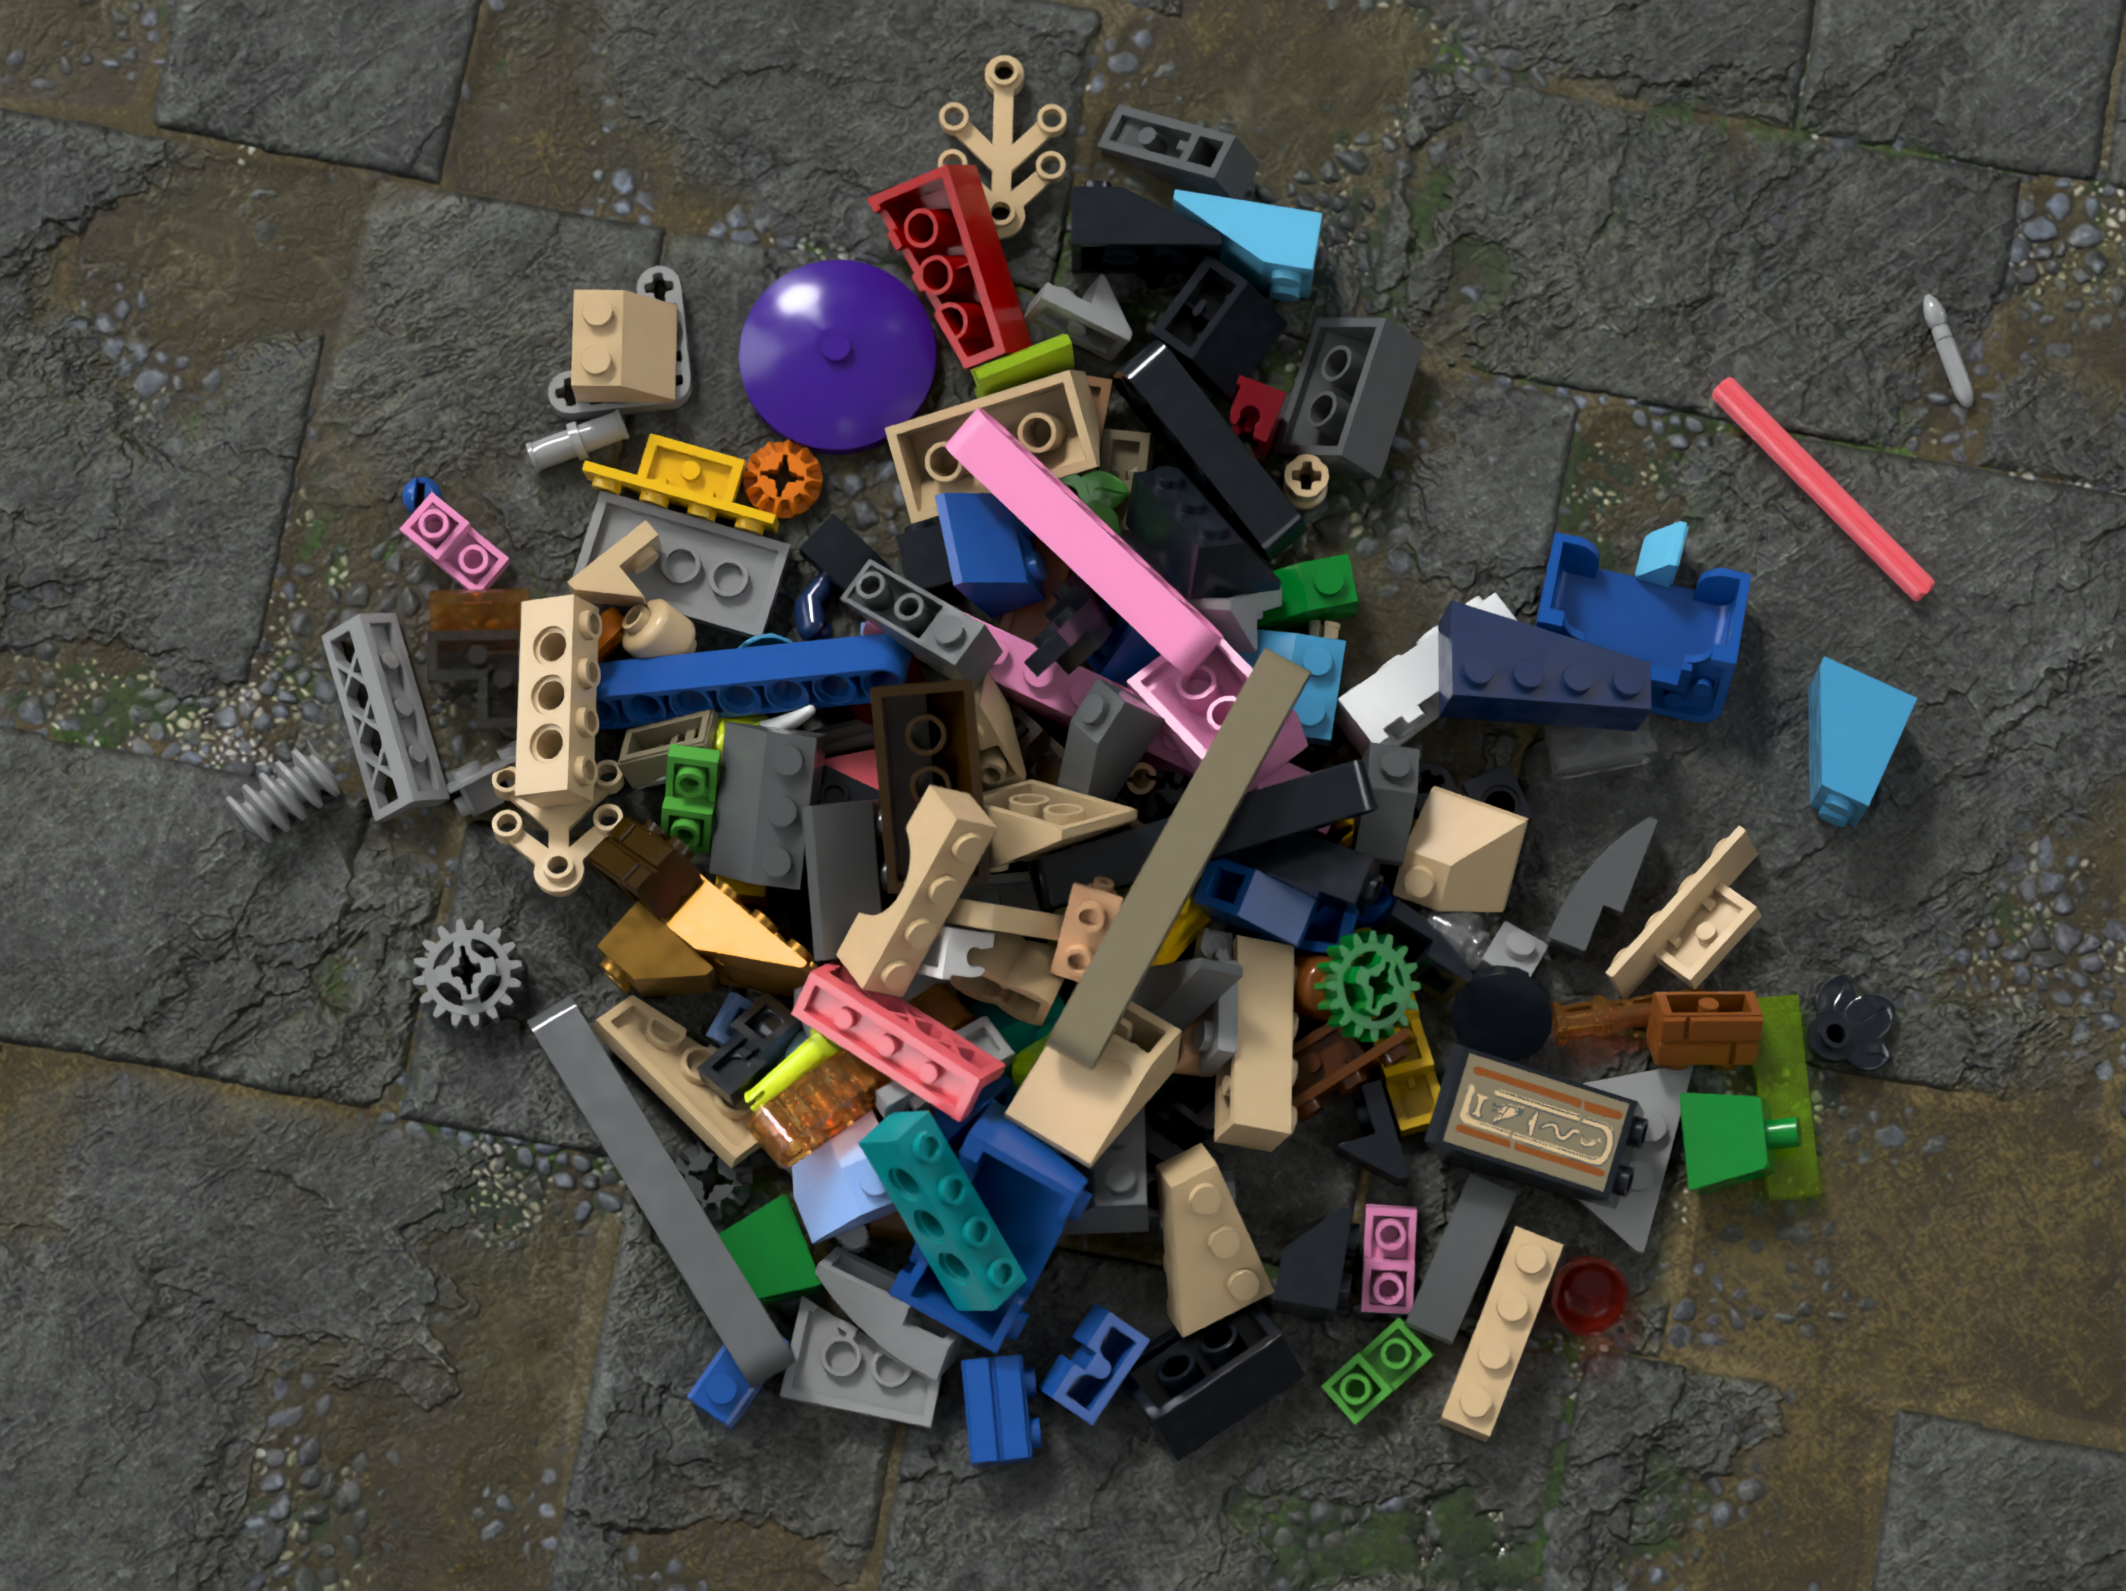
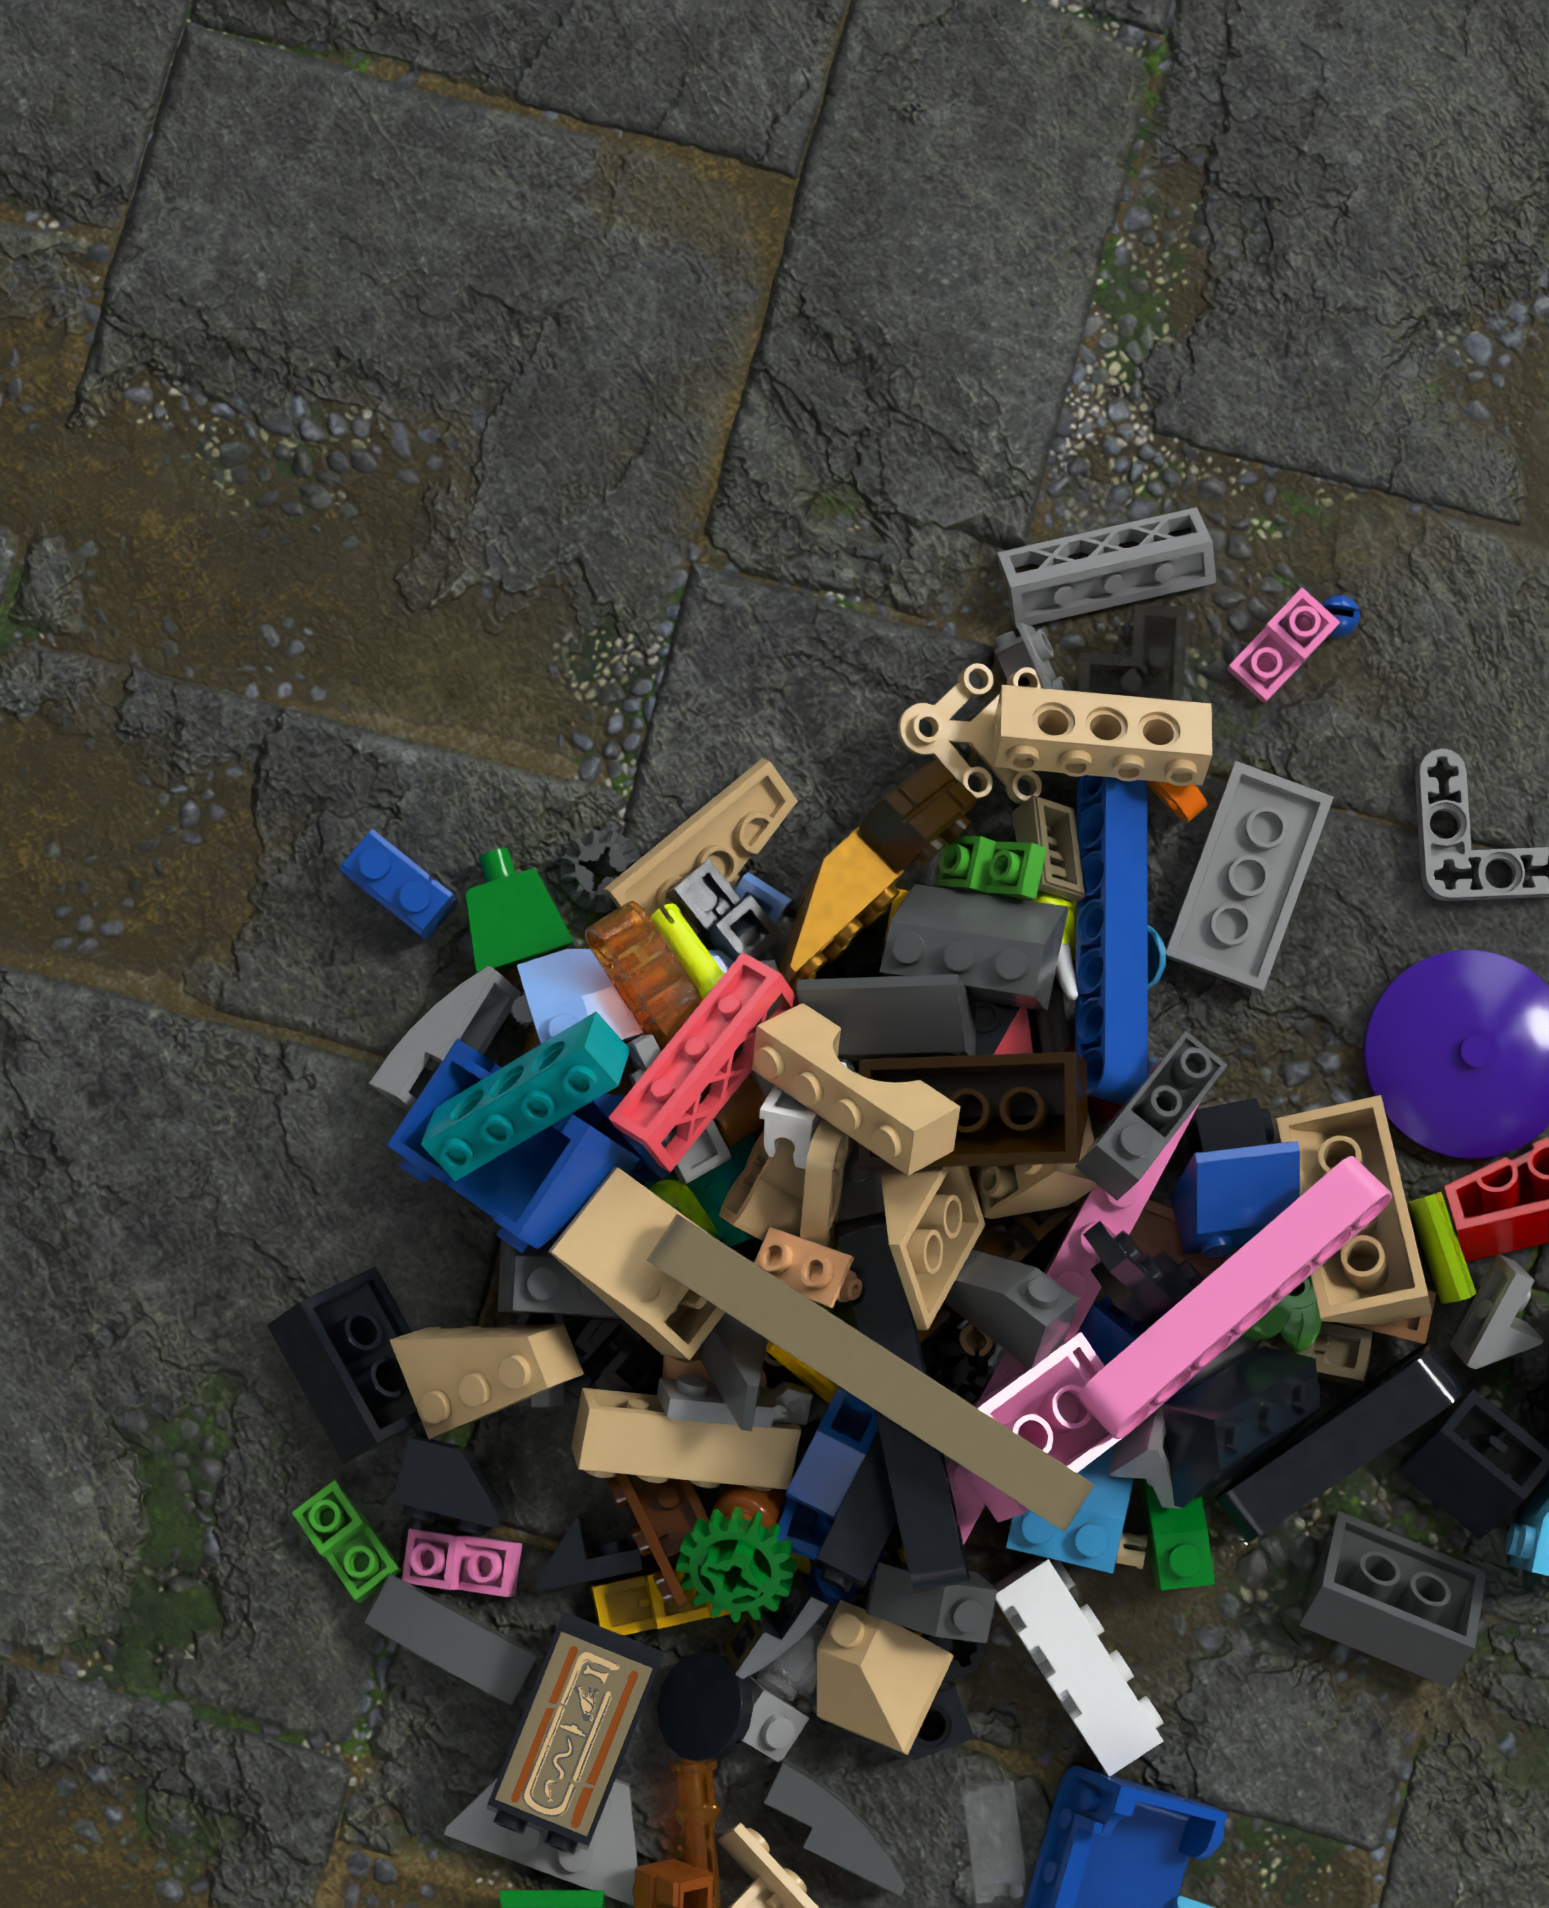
camera: 95 degrees right, 5 degrees up
(285, 794) = (1027, 462): light grey piece -> none
(445, 976) = (850, 636): light grey gear -> none
(476, 609) = (1211, 663): clear orange tile -> none
(577, 440) = (1389, 777): light grey pin -> none
(606, 577) = (1236, 795): tan slope -> none
(623, 347) = (1486, 827): tan slope -> none
(653, 959) = (828, 812): pearl gold slope -> none
(657, 631) = (1175, 847): tan head -> none
(661, 1192) = (581, 815): dark grey beam -> none
(688, 478) = (1343, 888): yellow bracket -> none
(797, 495) = (1318, 1003): orange gear -> none
(810, 612) = (1192, 1006): dark blue arm -> none
(838, 553) = (1245, 1047): black slope -> none
(853, 1373) = (390, 994): light grey wing -> none
(998, 1410) = (336, 1146): blue brick -> none
(1097, 1367) = (367, 1249): blue brick -> none
(1259, 412) = (1380, 1497): dark red hinge -> none
(1319, 478) = (1310, 1558): tan bush -> none
(1500, 1334) = (368, 1674): tan brick -> none
(1535, 676) = (1062, 1773): dark blue wedge -> none
(1589, 1296) = (400, 1771): clear red hair -> none

